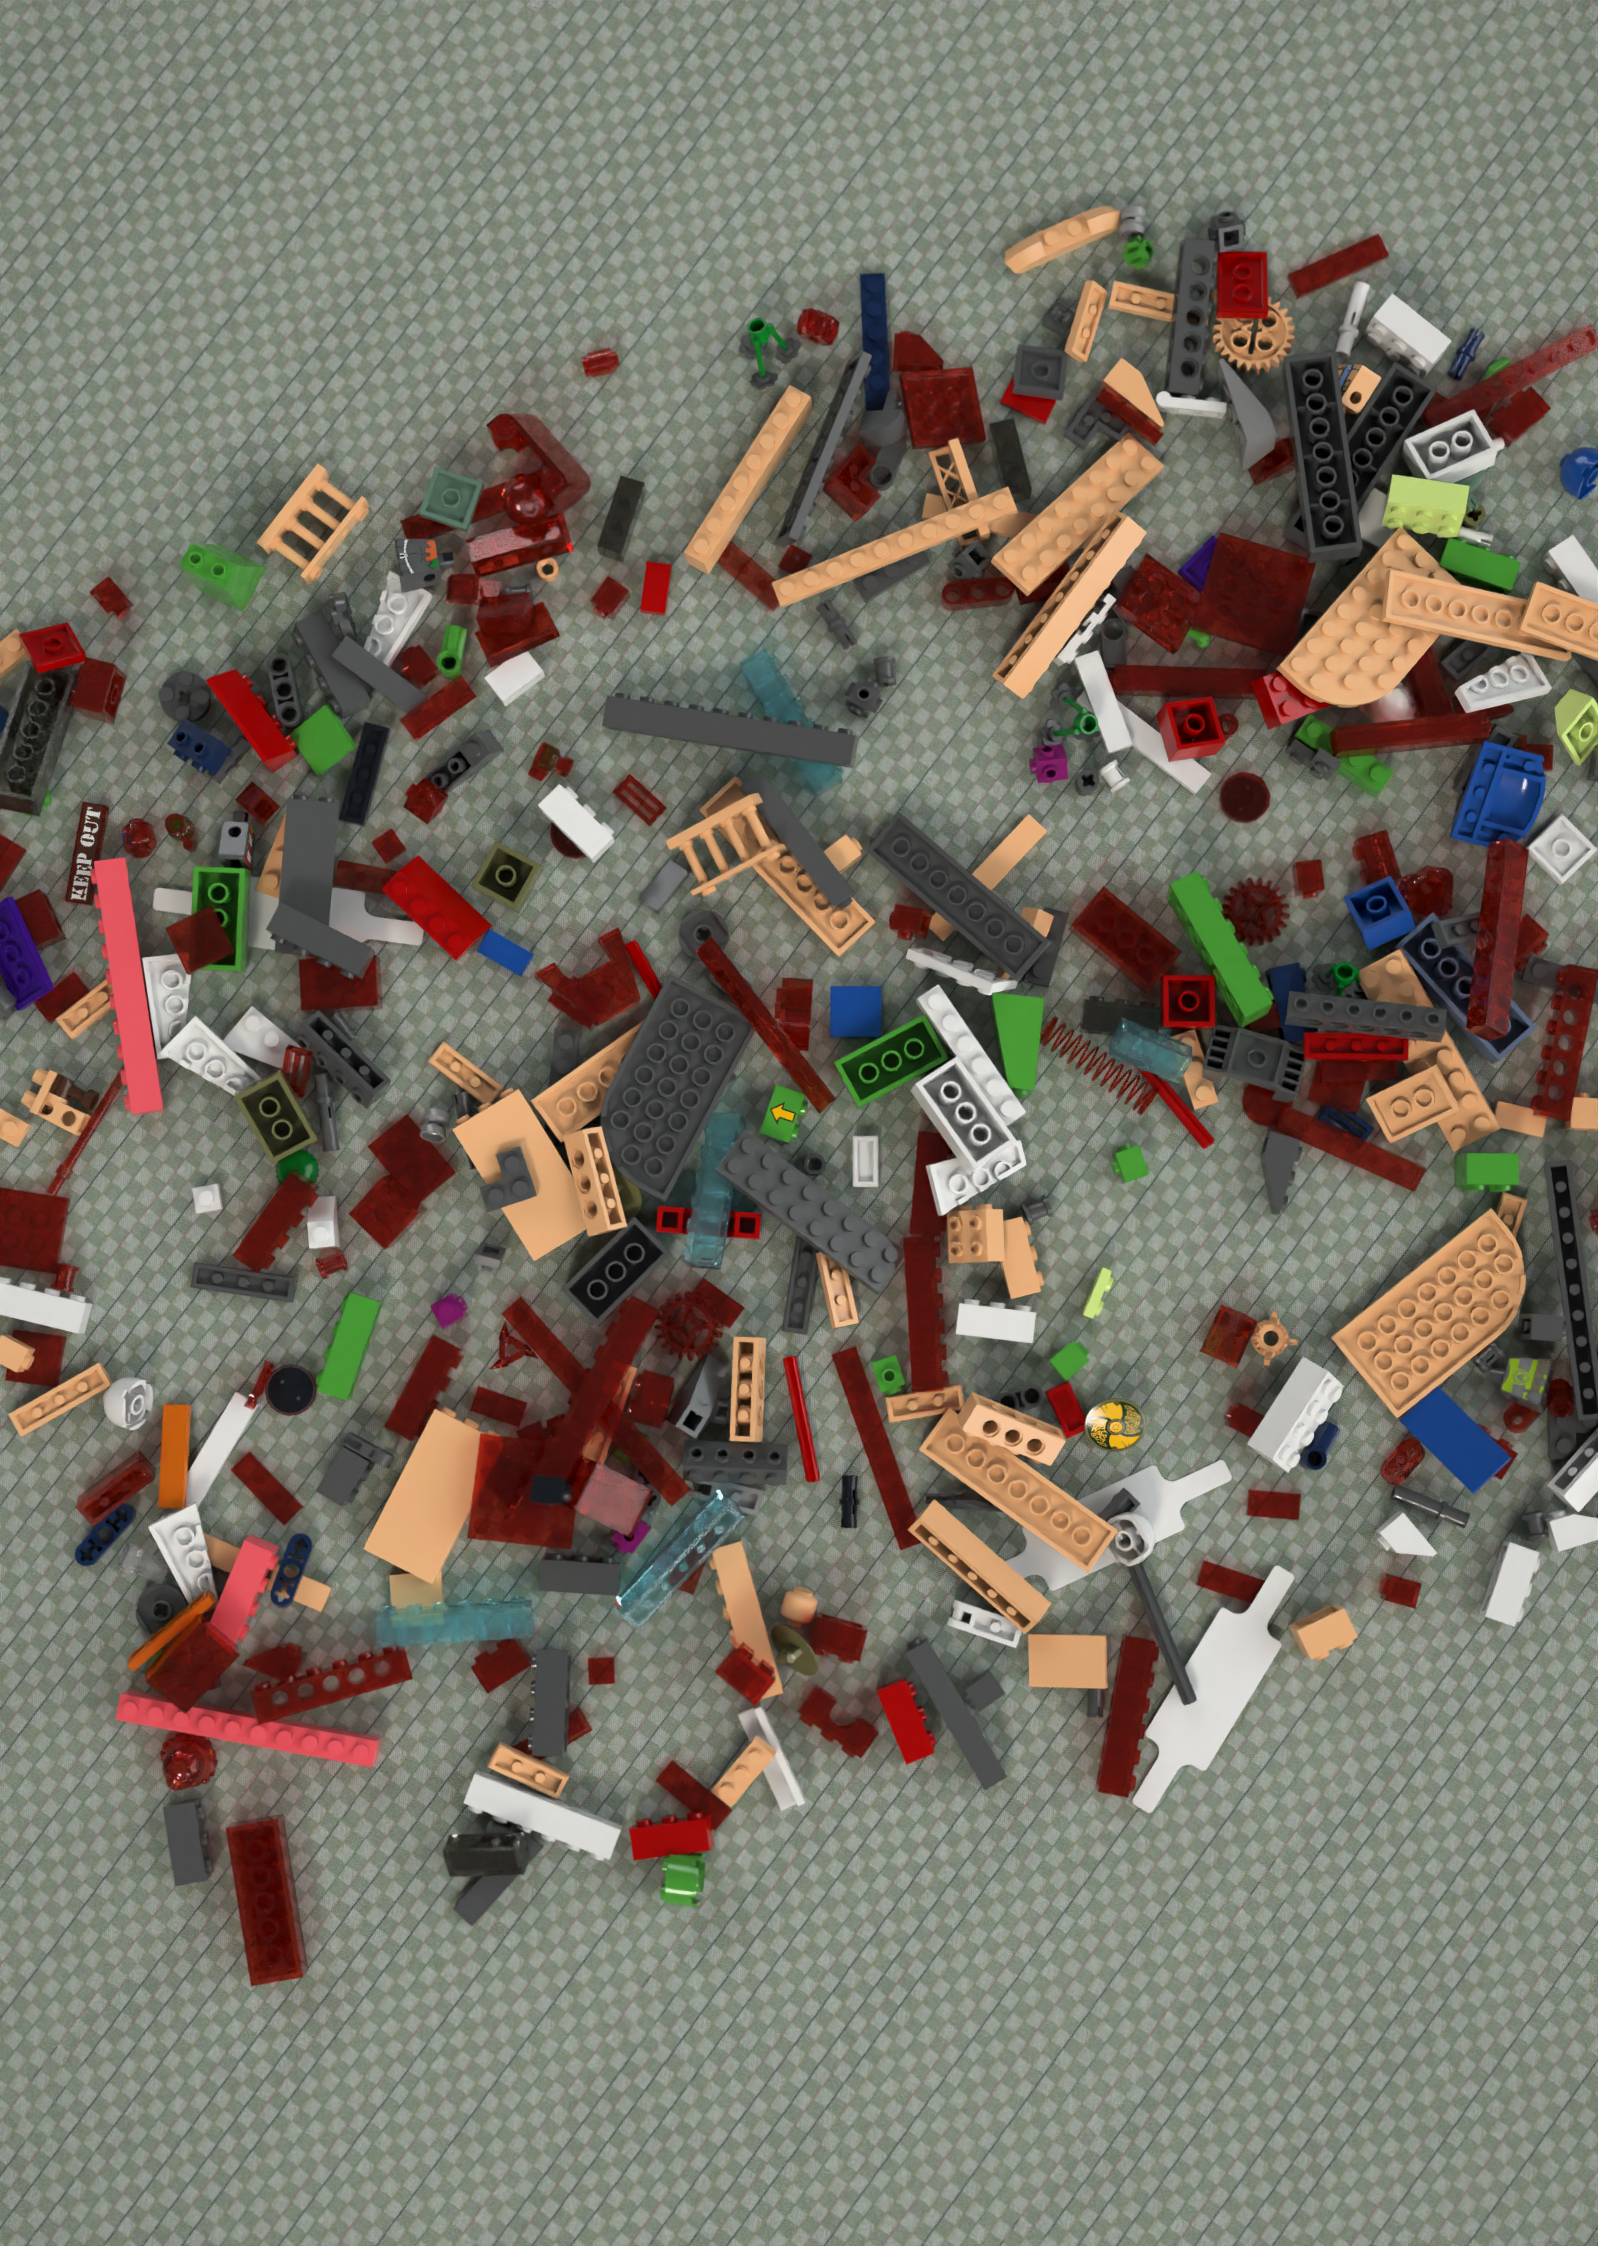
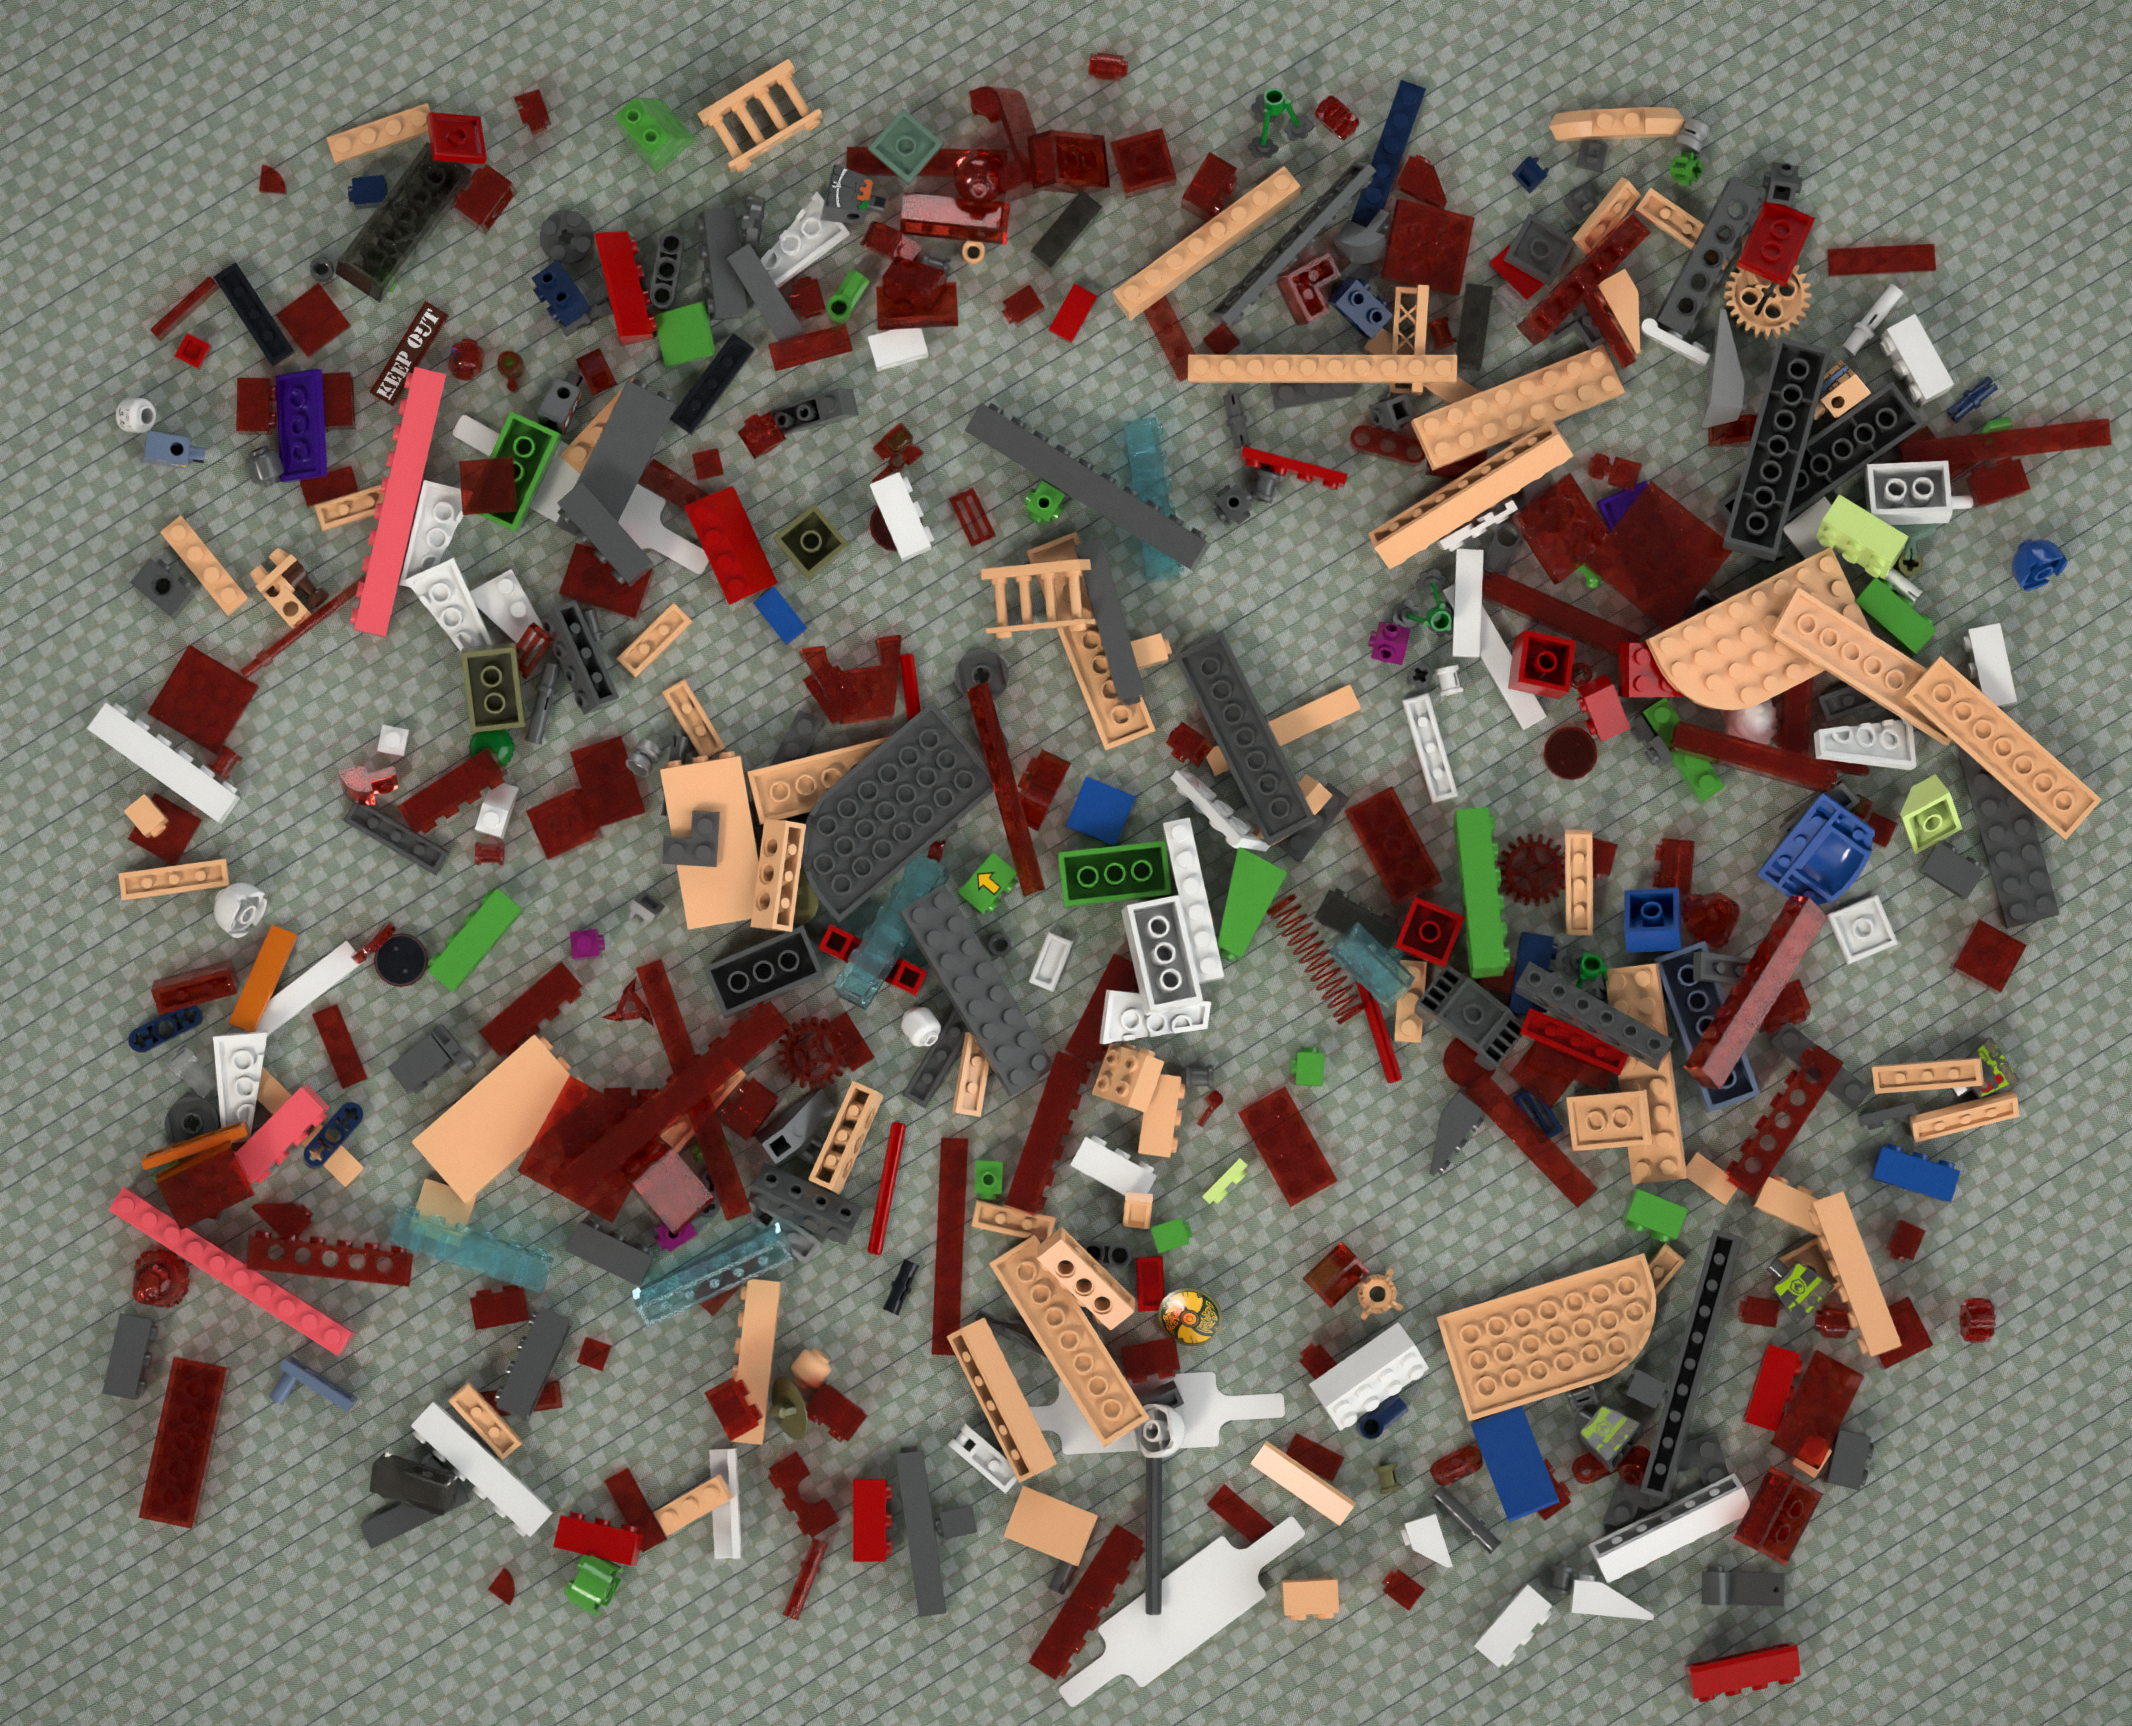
camera: 20 degrees right, 0 degrees up
(195, 1250) = (362, 786): none -> clear red brick
(344, 1793) = (297, 1371): none -> sand blue piece
(403, 1018) = (654, 640): none -> light nougat tile
(498, 1406) = (596, 1057): clear red tile -> none
(550, 785) = (889, 469): none -> clear red hand
(550, 1491) = (617, 1156): black brick -> none
(598, 454) = (1068, 162): none -> clear red brick
(604, 1911) = (504, 1586): none -> clear red tile
(664, 886) = (962, 612): dark grey slope -> none
(665, 432) = (1143, 163): none -> clear red brick
(698, 753) = (1046, 494): none -> bright green brick
(725, 1103) = (936, 850): none -> clear red bush
(731, 429) = (1209, 187): none -> clear red brick
(774, 1264) = (920, 1026): none -> white head
(869, 1795) = (806, 1576): none -> clear red pin
(893, 646) = (1282, 465): none -> red plate
(905, 482) = (1360, 307): none -> dark blue brick
(984, 478) = (1441, 333): none -> clear red bush
(1005, 311) = (1530, 174): none -> dark blue tile
(1031, 1349) = (1137, 1210): none -> light nougat tile
(1037, 429) = (1511, 302): none -> clear piece
(1051, 275) = (1592, 156): none -> dark grey tile
(1057, 1224) = (1215, 1100): none -> clear red hand
(1090, 380) = (1582, 279): none -> clear red brick
(1096, 1476) = (1150, 1359): none -> clear red brick
(1120, 842) = (1430, 748): none -> white tile
(1139, 1240) = (1287, 1146): none -> clear red plate
(1191, 537) = (1621, 474): none -> clear red plate
(1258, 745) = (1602, 708): none -> brick
(1274, 1532) = (1303, 1483): none -> light nougat tile
(1300, 905) = (1579, 881): none -> light nougat tile
(1346, 1497) = (1388, 1478): none -> olive bush

